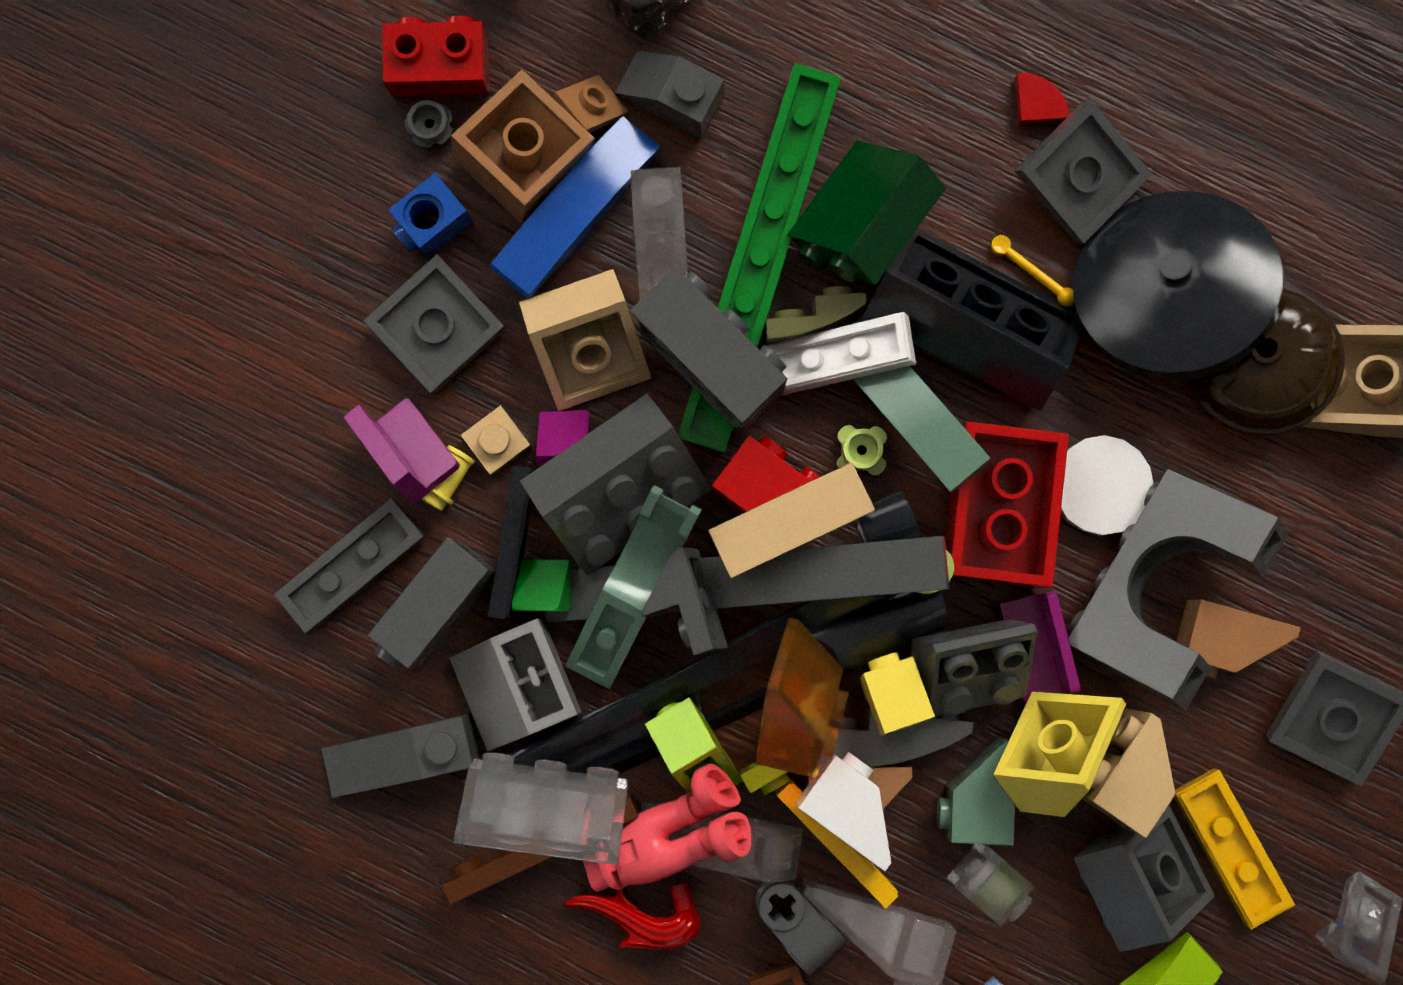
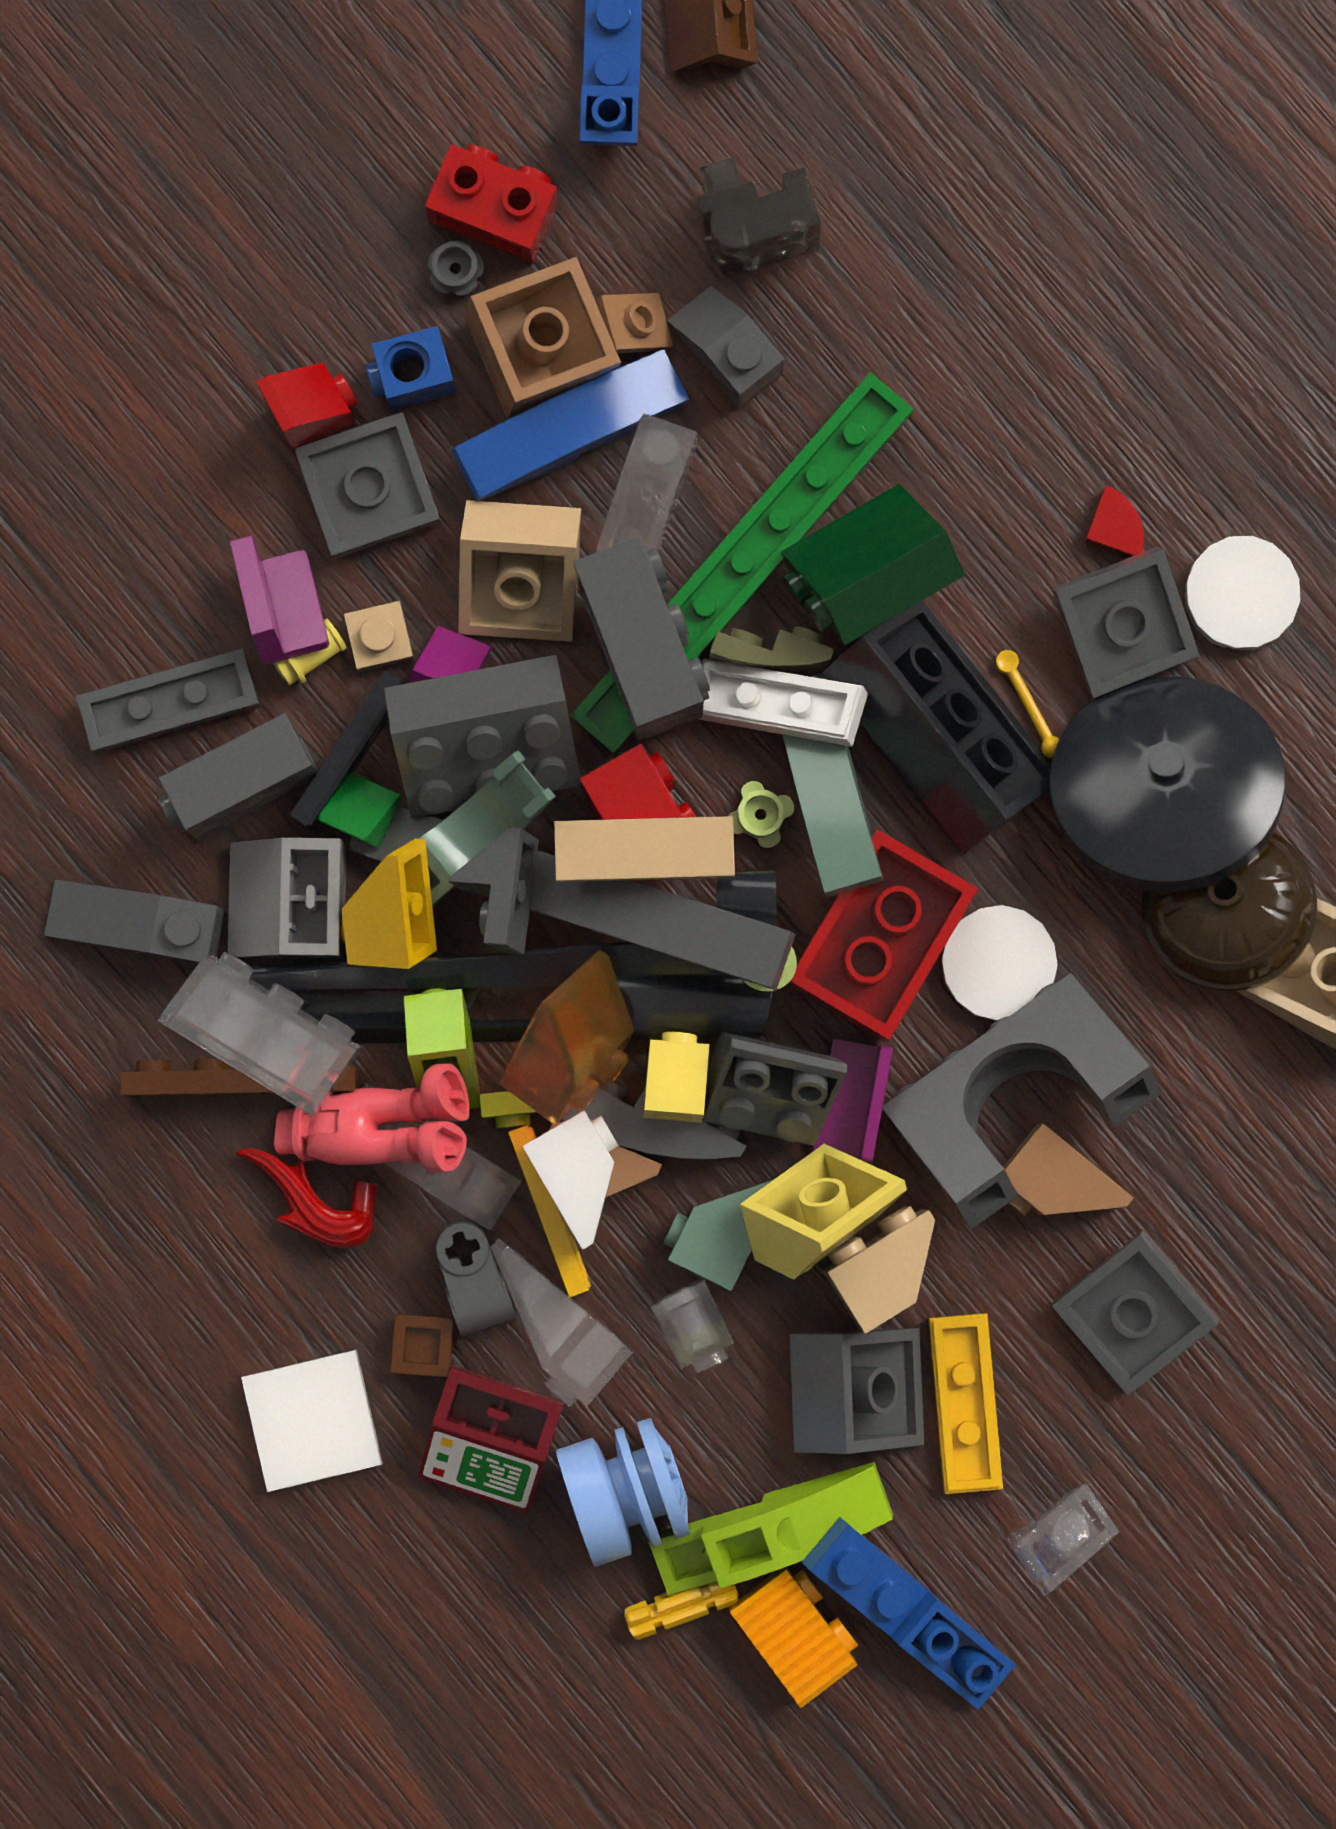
camera: 20 degrees right, 0 degrees up
(358, 279) = (308, 403): none -> red slope
(606, 661) = (392, 912): none -> yellow slope
(1161, 111) = (1242, 593): none -> white tile

